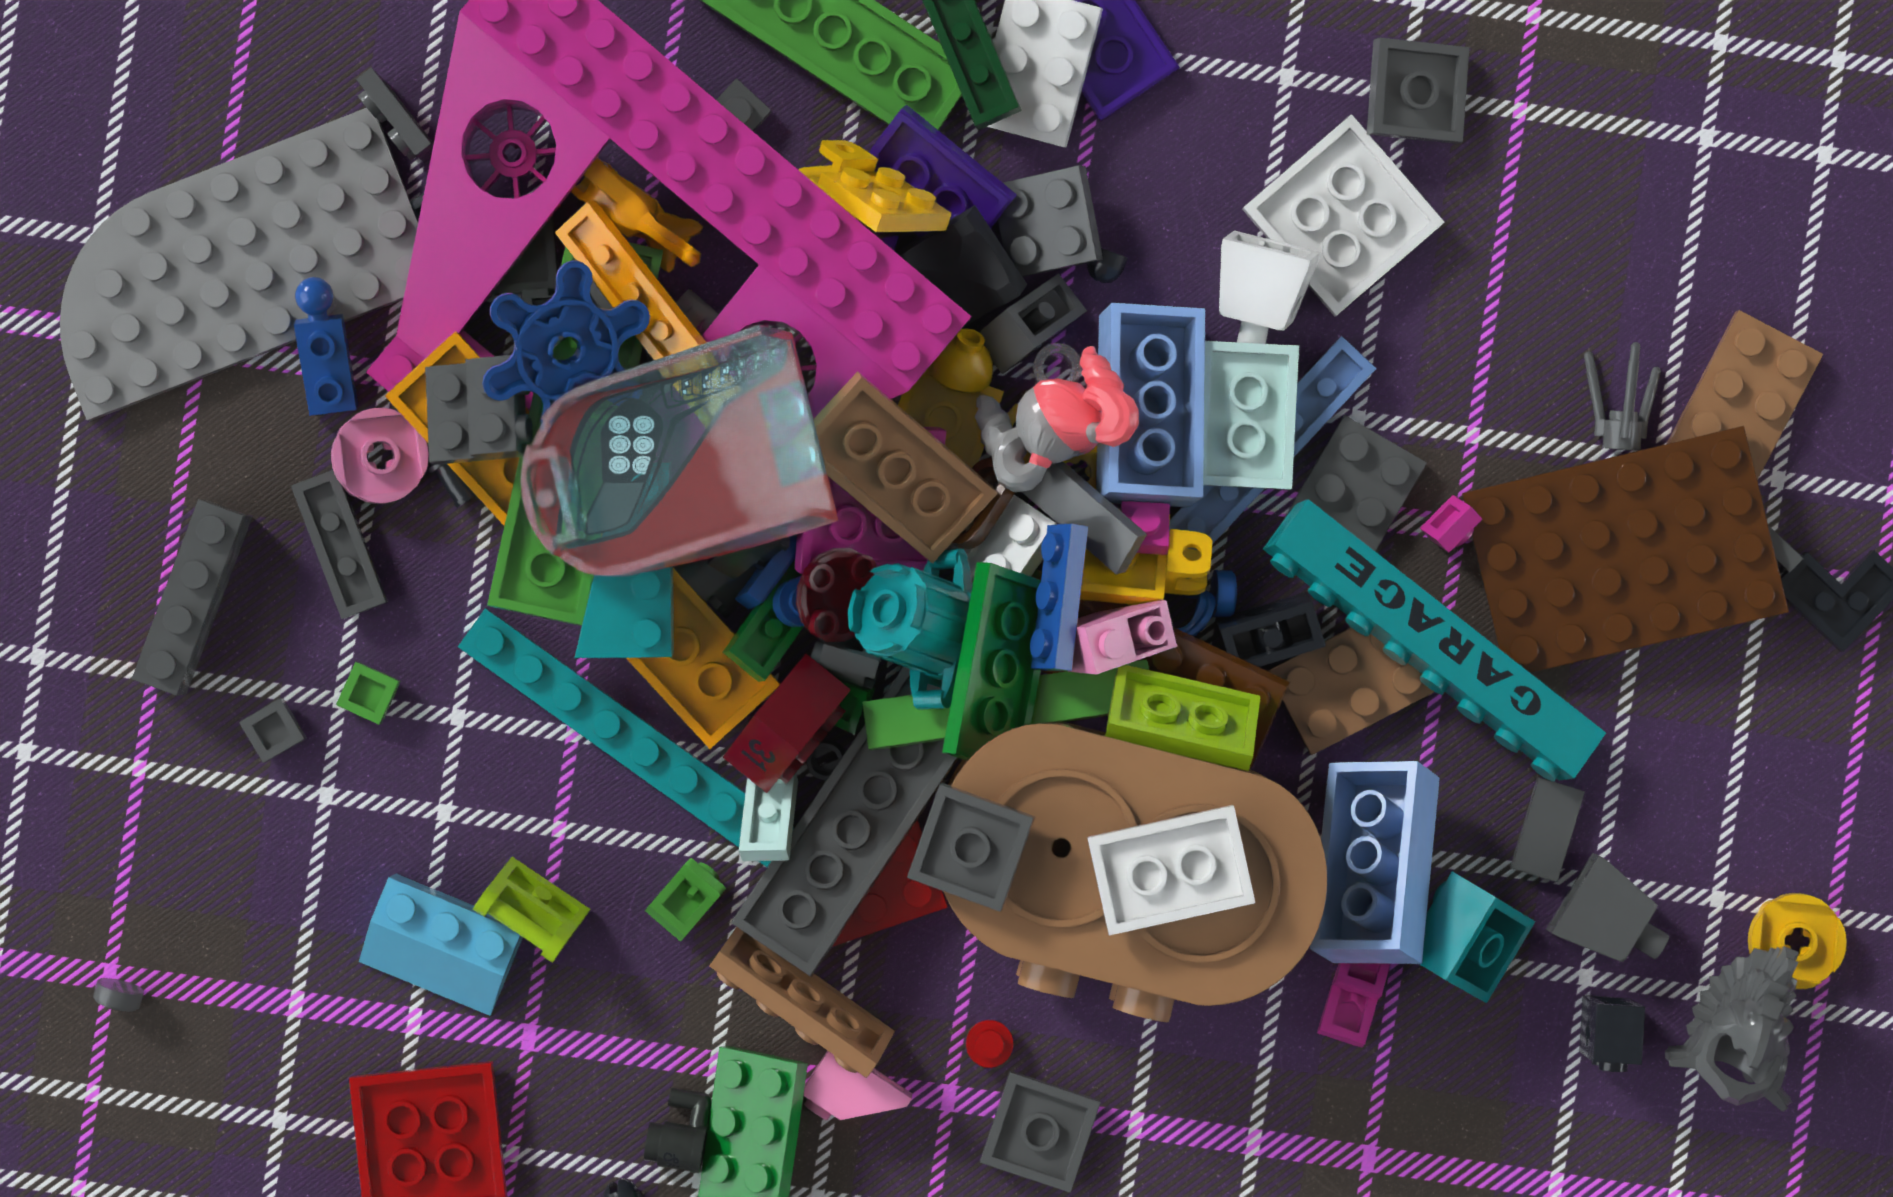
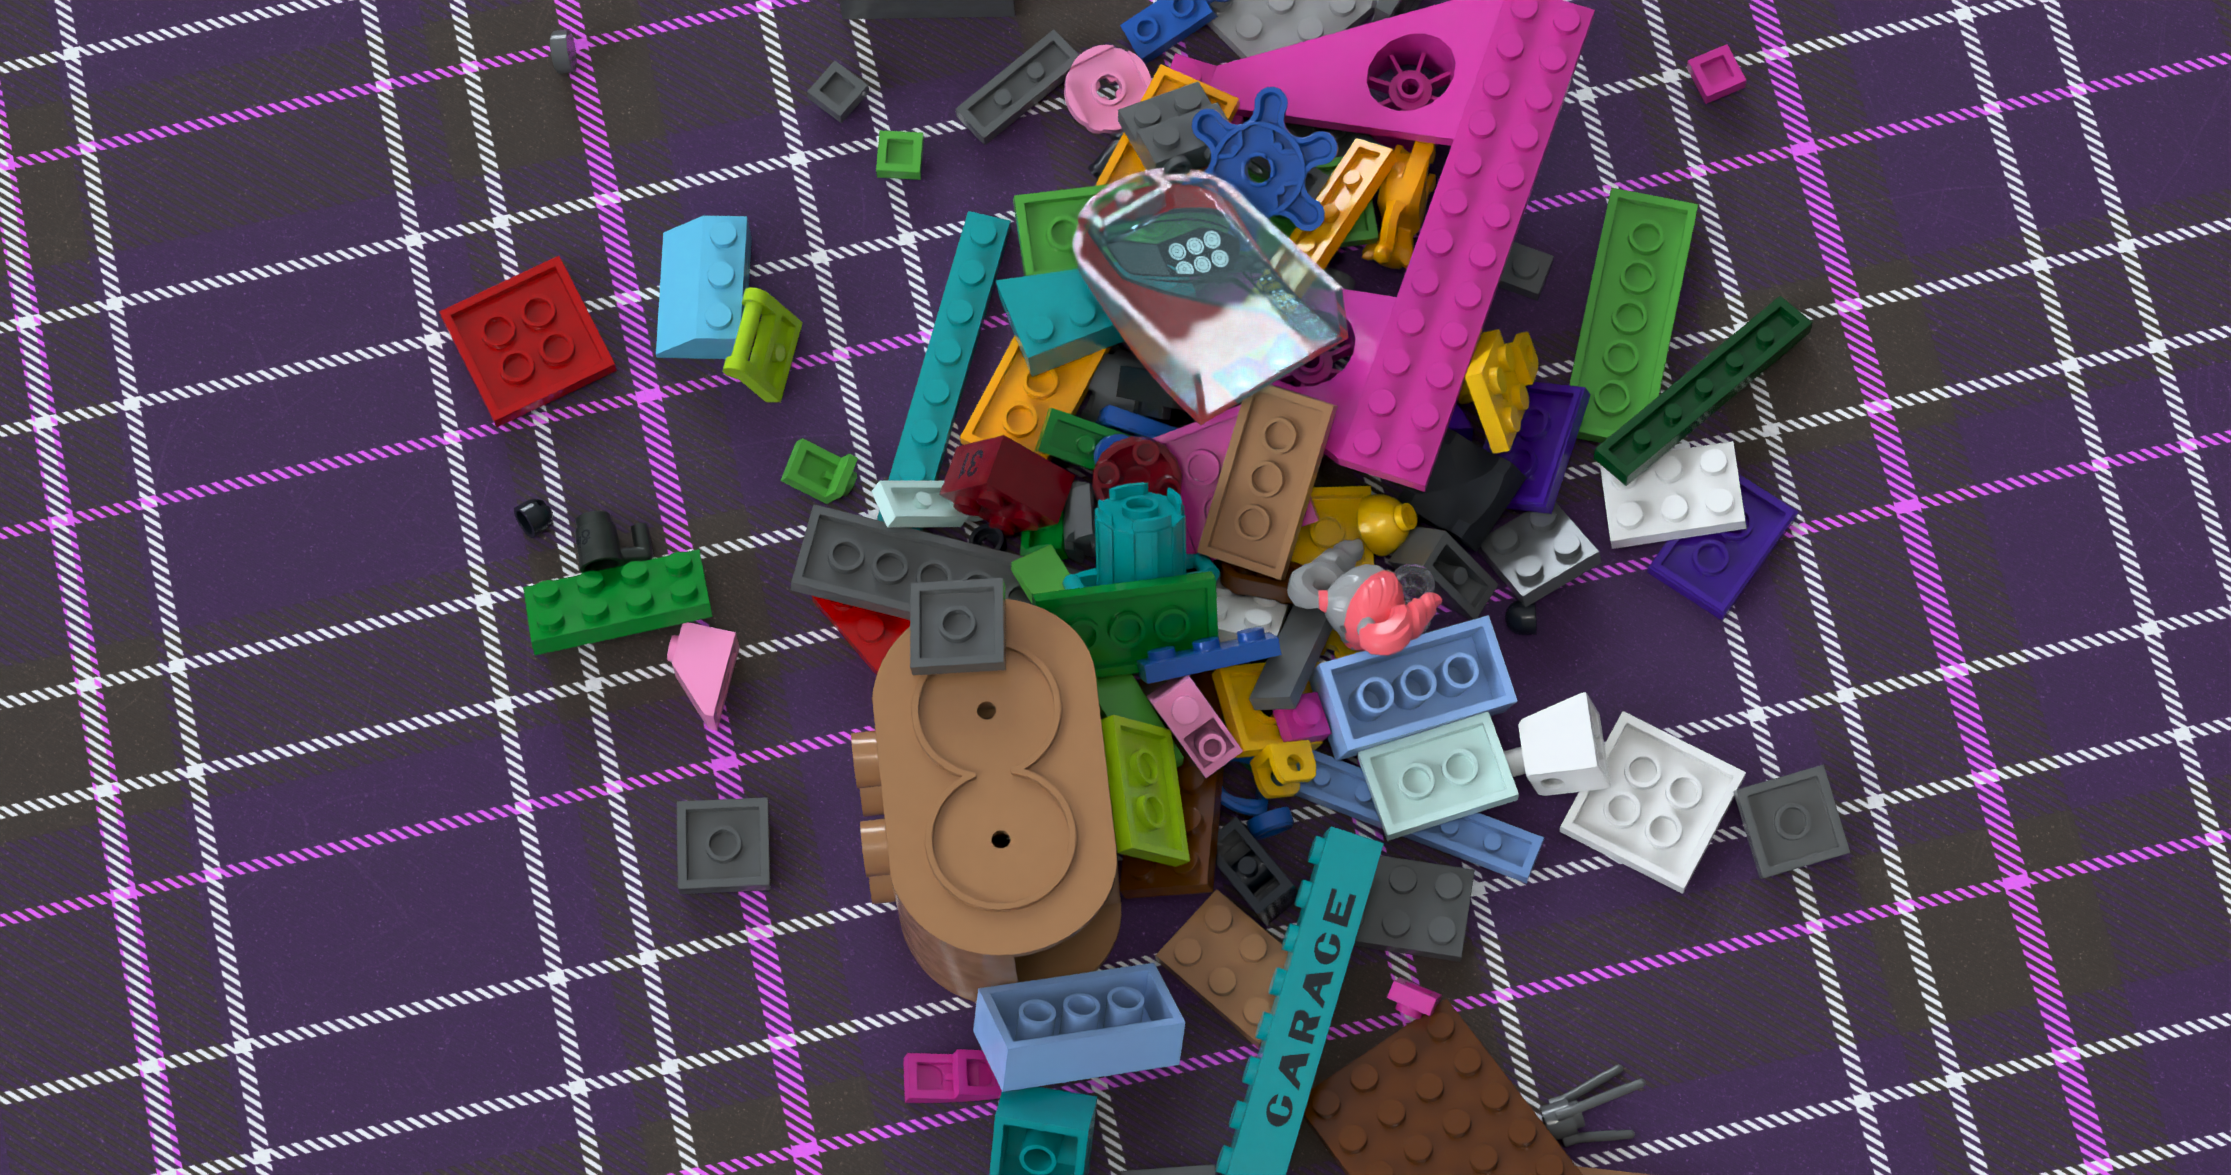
camera: 75 degrees right, 20 degrees down
(806, 1002) = (764, 598): medium nougat plate -> none
(989, 1043) = (787, 774): red plate -> none
(1171, 870) = (1003, 800): white plate -> none

